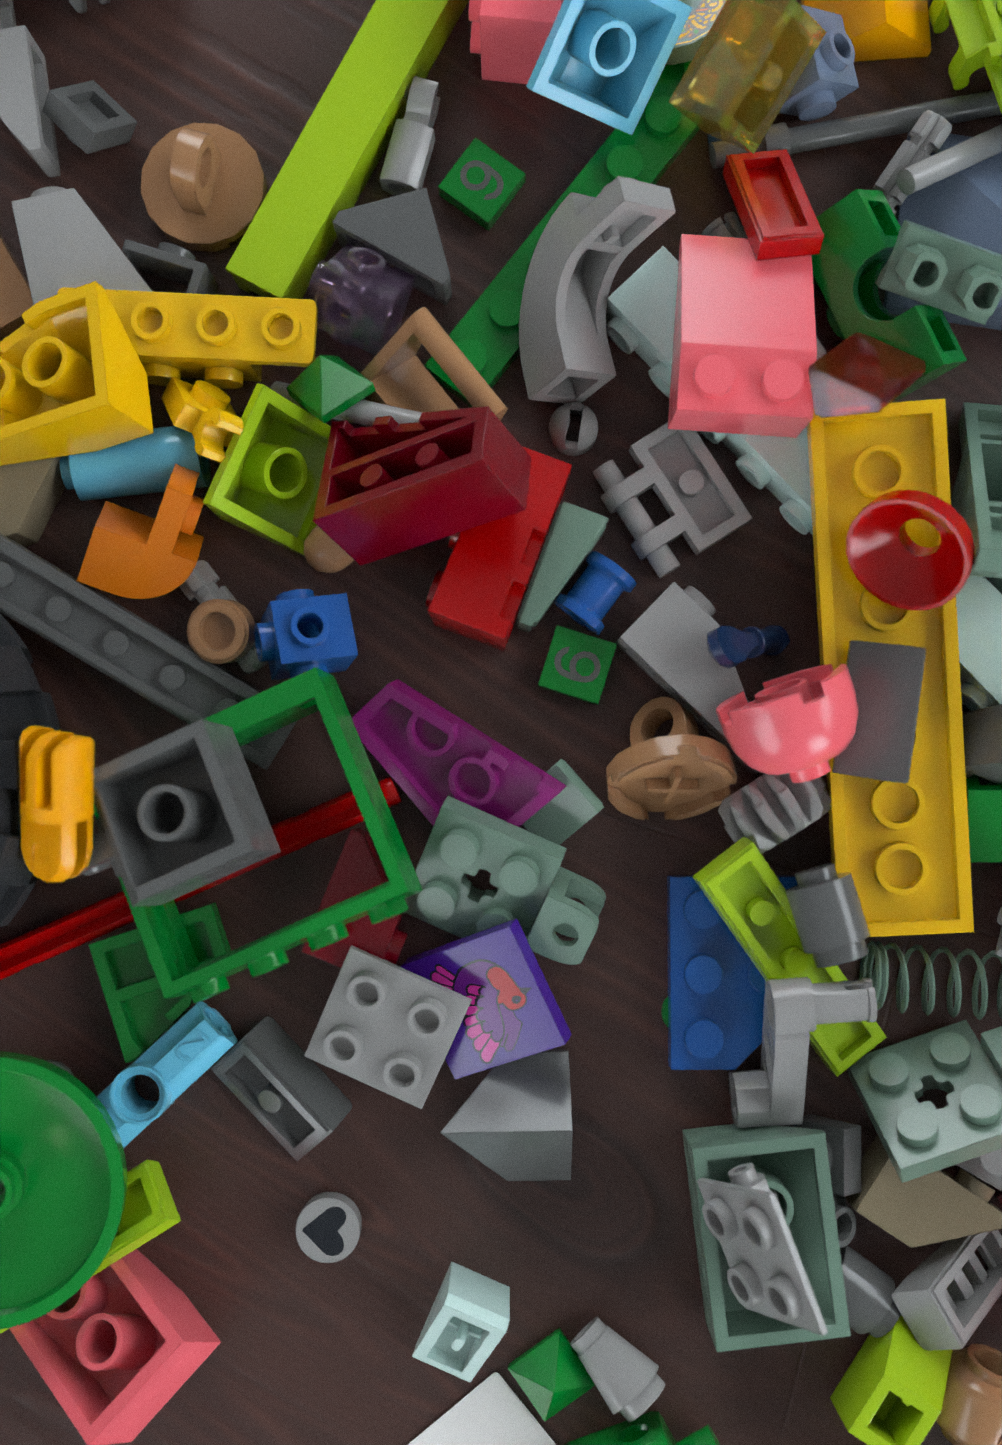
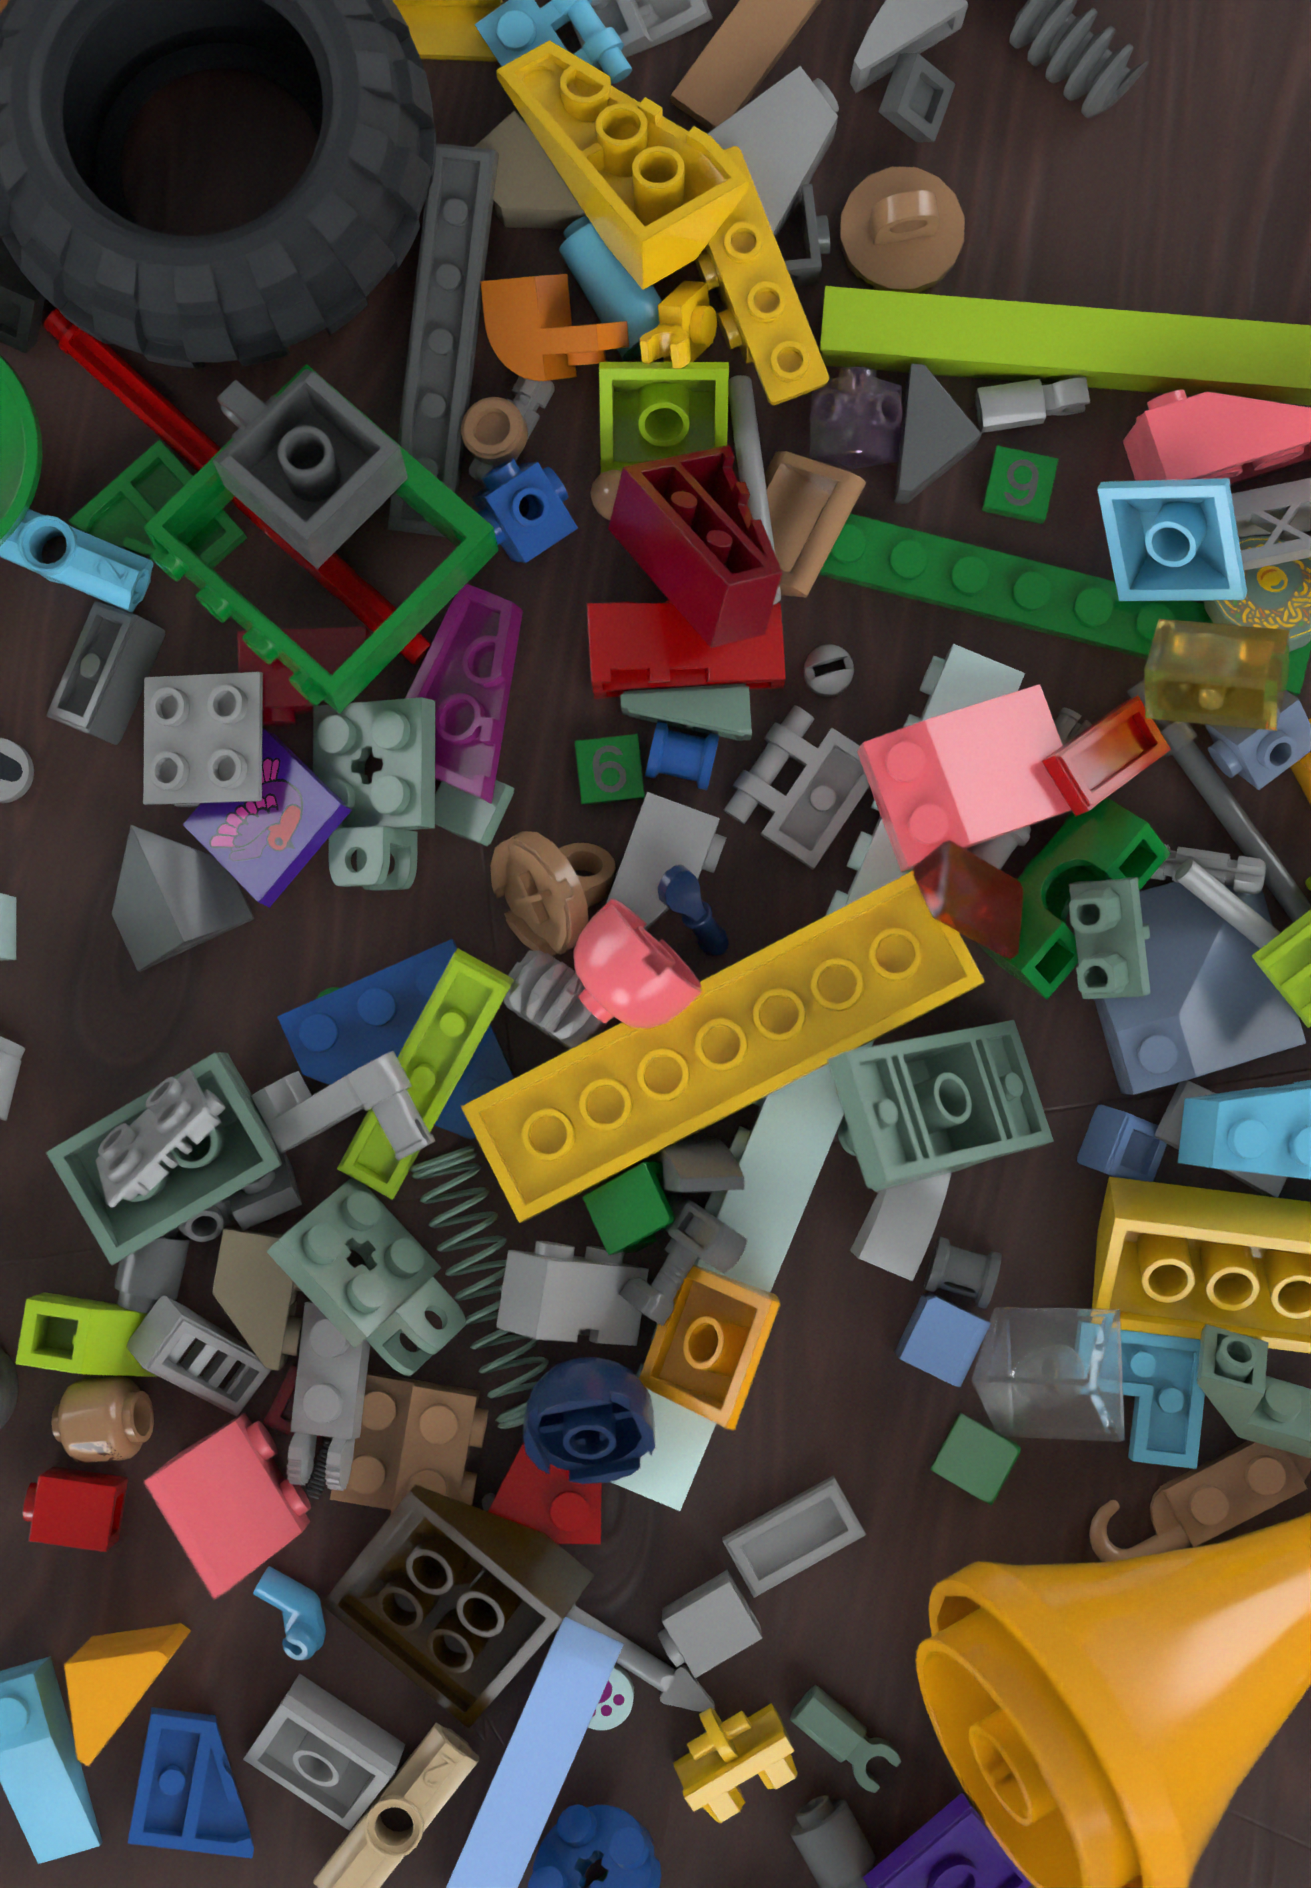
camera: 65 degrees right, 0 degrees up
(56, 802) = (273, 355): light orange arm -> none
(329, 387) = (759, 429): green slope -> none
(569, 282) = (945, 606): light grey arch -> none
(828, 915) = (474, 1081): dark grey brick -> none
(888, 699) = (688, 1043): dark grey slope -> none
(896, 566) = (814, 998): red piece -> none

